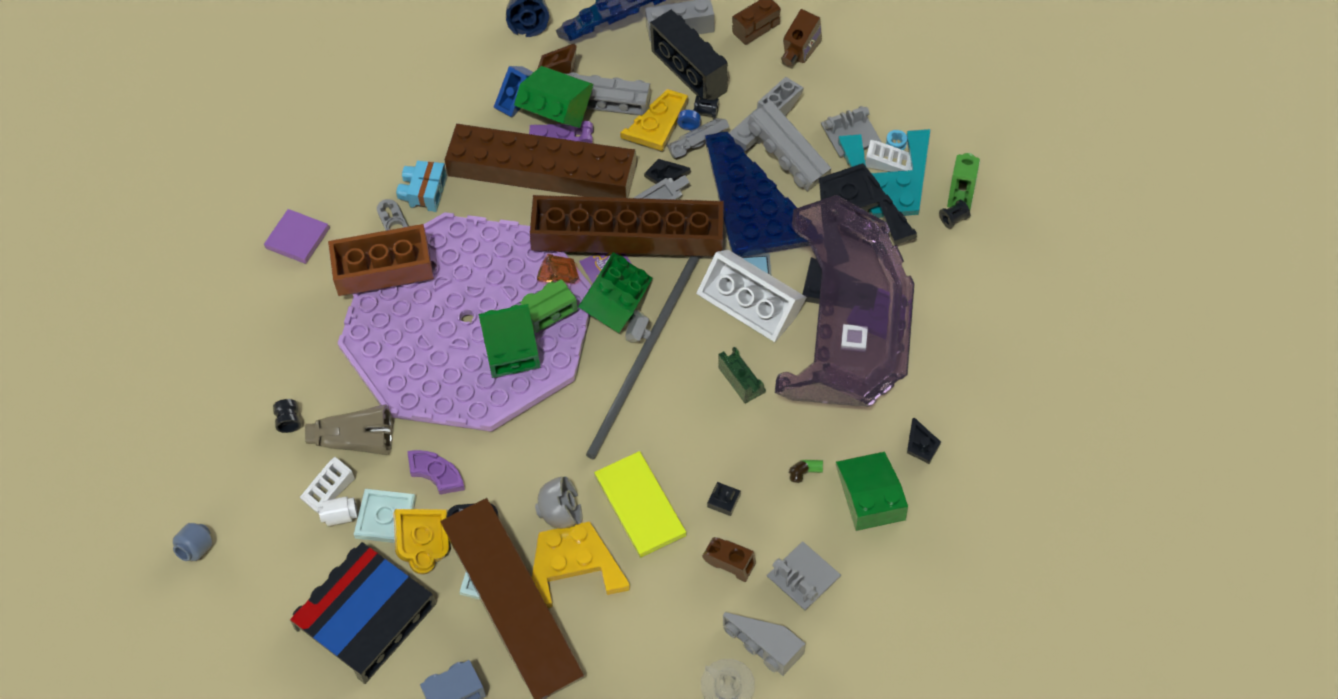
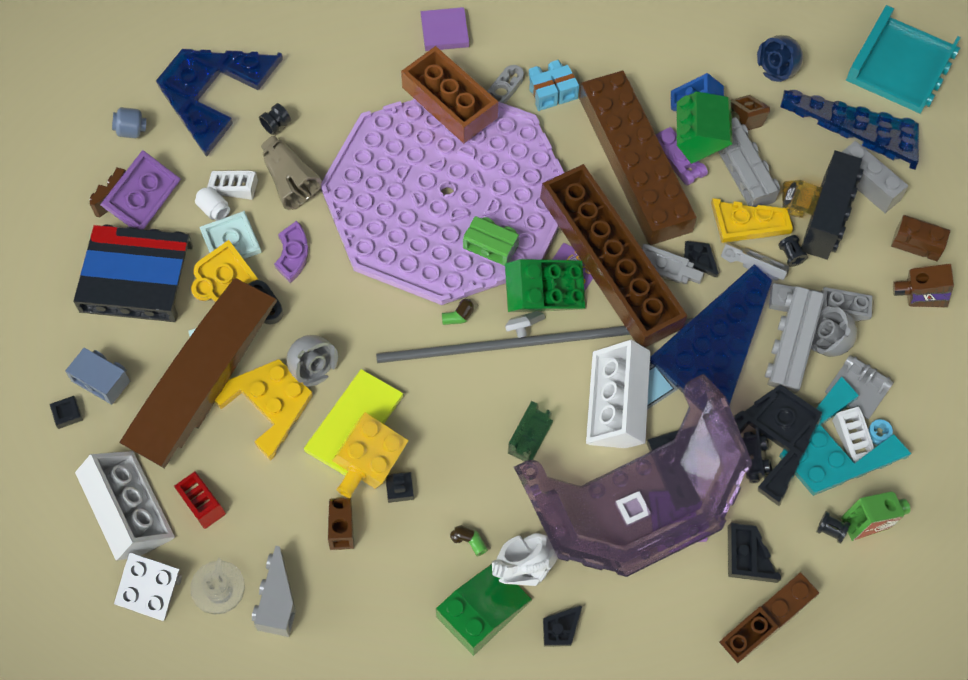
camera: 55 degrees right, 5 degrees up
(182, 468) = (191, 76): none -> clear blue wing
(260, 601) = (102, 191): none -> reddish brown slope
(279, 564) = (140, 191): none -> medium lavender tile
(509, 340) = (427, 229): green slope -> none
(557, 268) = (532, 228): clear orange tile -> none
(595, 371) = (461, 313): none -> arm
(642, 671) = (207, 513): none -> red slope
(667, 72) = (800, 197): none -> clear yellow slope
(683, 501) = (368, 454): none -> yellow brick
(689, 119) = (767, 244): blue tile -> none
(802, 115) = (834, 332): none -> light grey cylinder
(803, 575) = (362, 595): light grey hinge -> none
(854, 432) = (524, 560): none -> white helmet
(941, 281) = (748, 555): none -> black wing
(1001, 295) = (769, 618): none -> reddish brown slope

